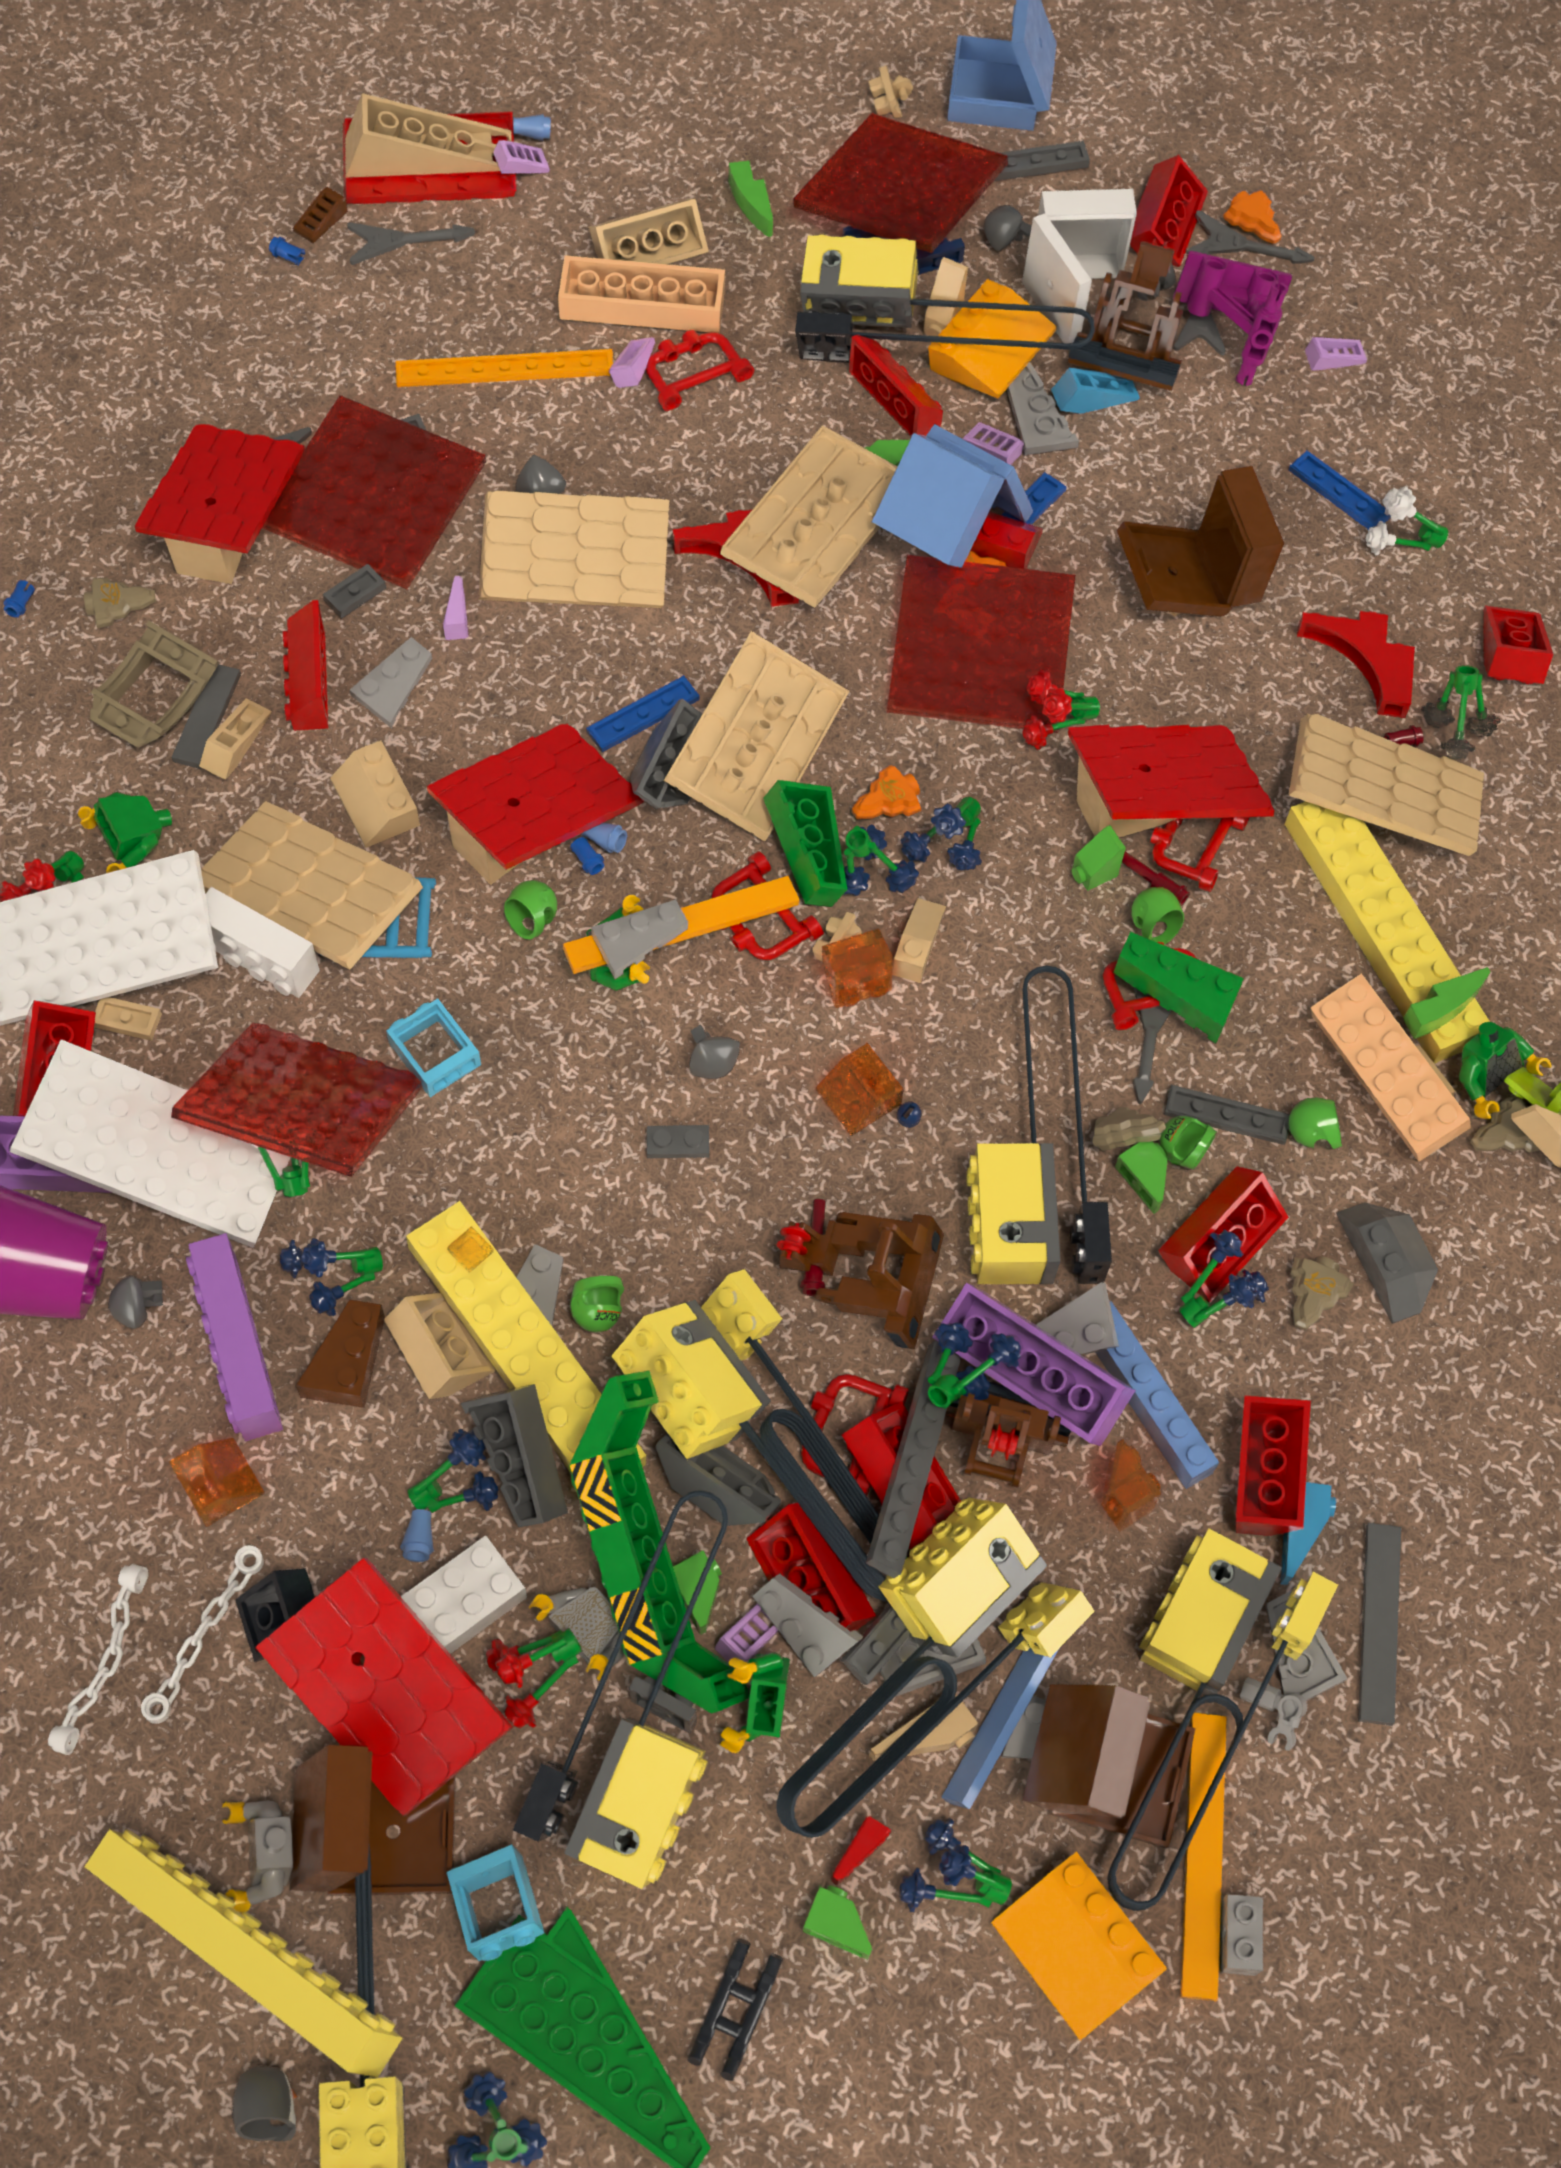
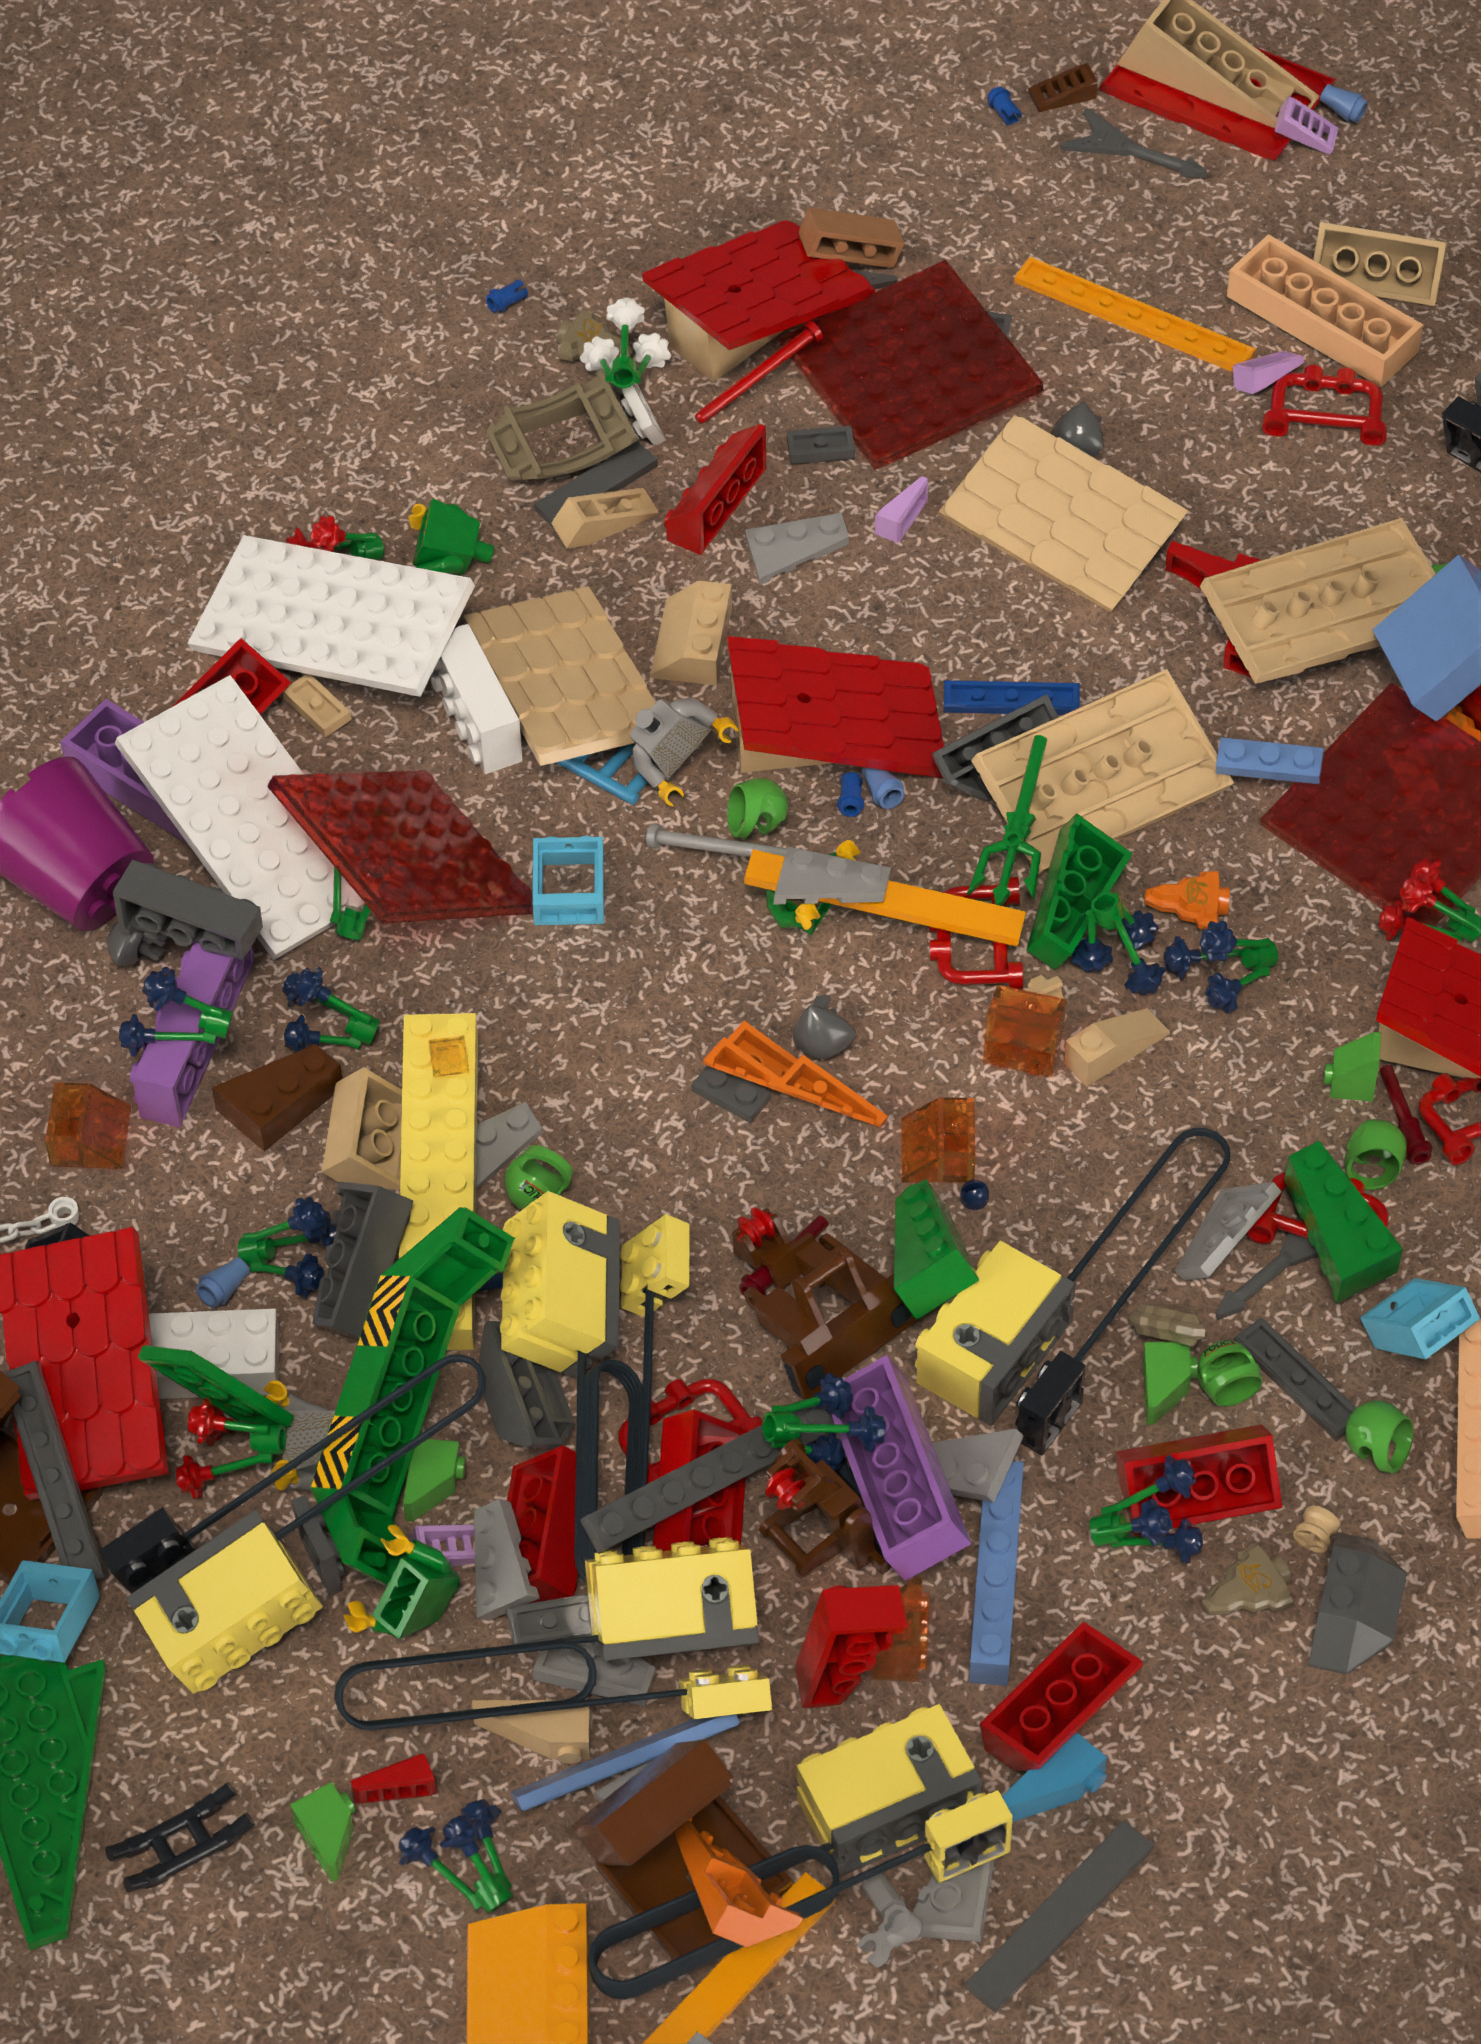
camera: 40 degrees right, 10 degrees down
(166, 585) = (649, 349): none -> white plant
(179, 1258) = (185, 911): none -> dark grey wedge
(188, 633) = (637, 406): none -> white plate
(221, 1339) = (160, 990): none -> plant
(258, 414) = (851, 237): none -> medium nougat brick
(284, 506) = (810, 333): none -> red bar
(423, 1787) = (54, 1472): none -> dark grey tile
(432, 889) = (668, 737): none -> light grey torso
(471, 972) = (657, 836): none -> light grey bar
(503, 1636) = (213, 1383): none -> green tile
(684, 1106) = (762, 1061): none -> orange wedge
(737, 818) = (1016, 832): none -> green piece
(867, 660) = (1269, 760): none -> medium blue plate
(934, 1185) = (928, 1251): none -> green wedge
(1100, 1033) = (1224, 1226): none -> light grey wing
(1113, 1524) = (844, 1640): none -> red wedge
(1198, 1783) = (731, 1892): none -> orange wedge
(1308, 1026) = (1423, 1318): none -> medium azure window
(1327, 1220) = (1316, 1529): none -> tan wheel

